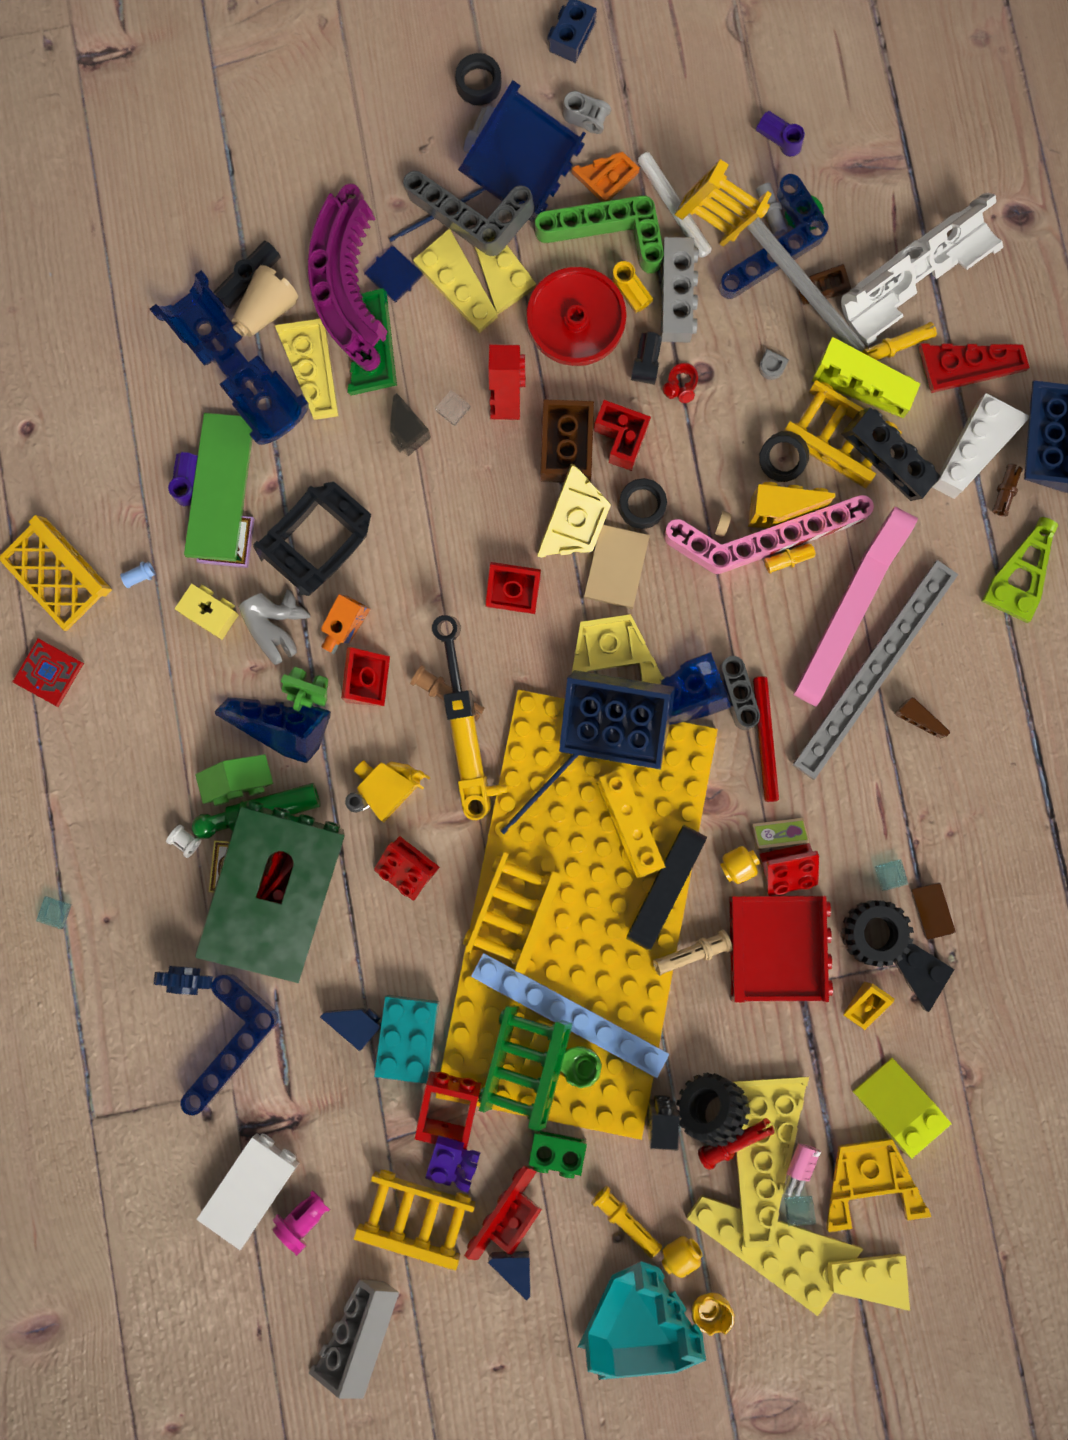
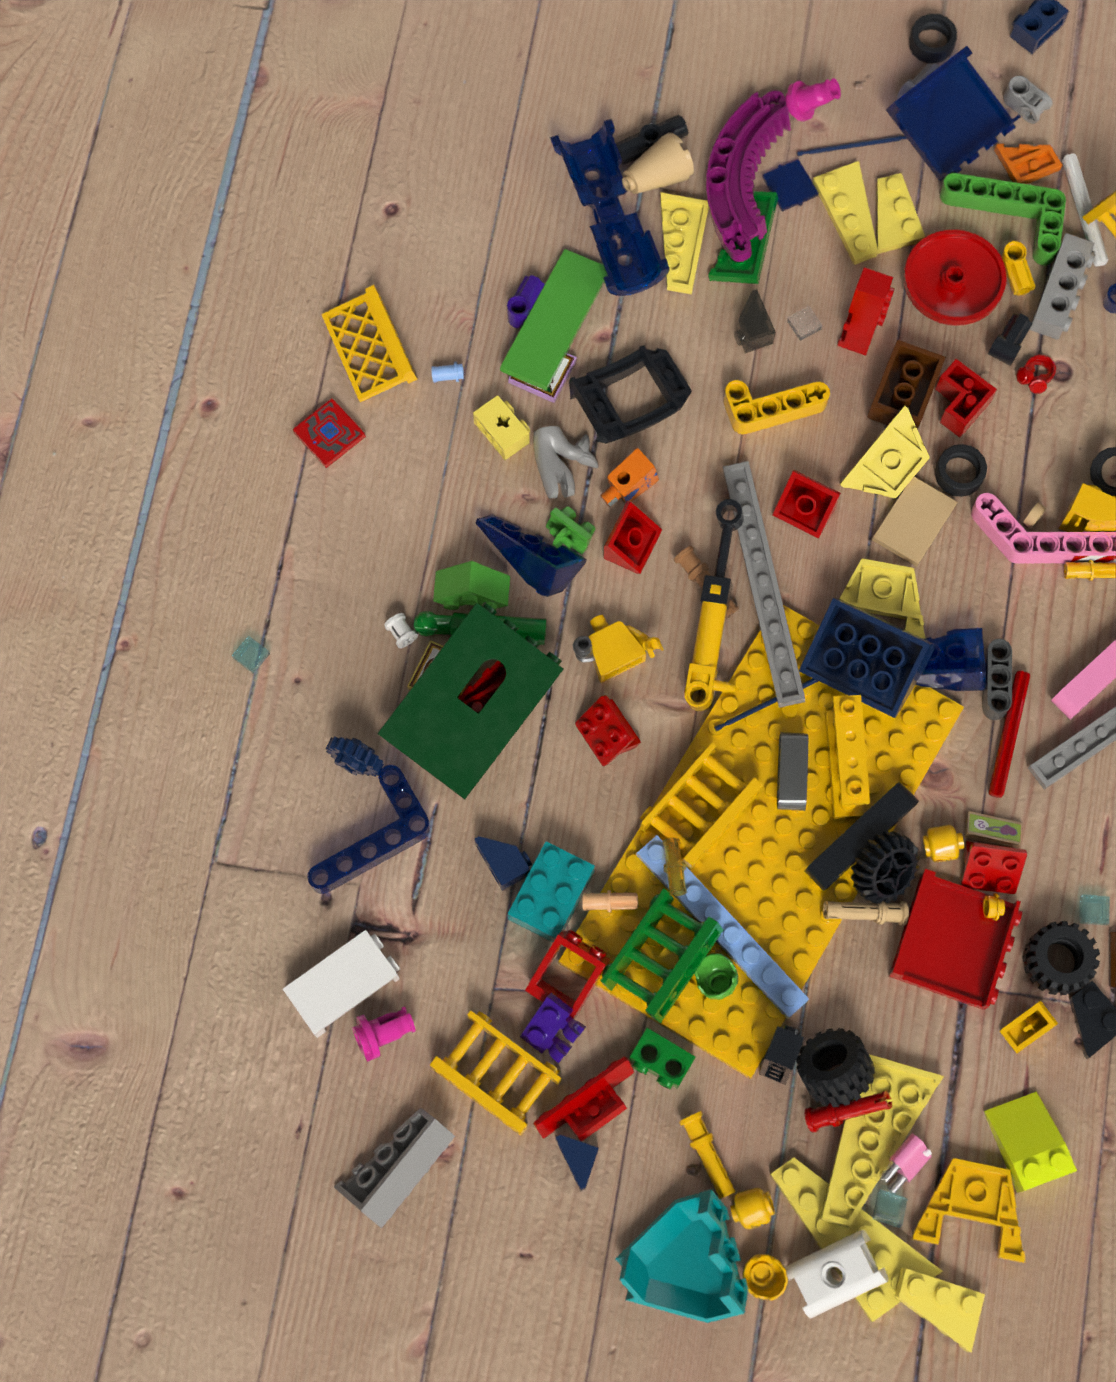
camera: 20 degrees right, 10 degrees down
(378, 184) = (804, 99): none -> dark pink piece
(454, 497) = (814, 394): none -> yellow beam
(462, 1029) = (609, 901): none -> light nougat axle
(466, 216) = (891, 175): dark grey beam -> none
(500, 680) = (765, 587): none -> light grey plate
(509, 981) = (674, 867): none -> clear yellow pin
(585, 849) = (792, 771): none -> dark grey beam
(697, 910) = (885, 867): none -> black gear
(780, 1274) = (819, 1286): none -> white piece
(803, 908) = (993, 907): none -> yellow plate

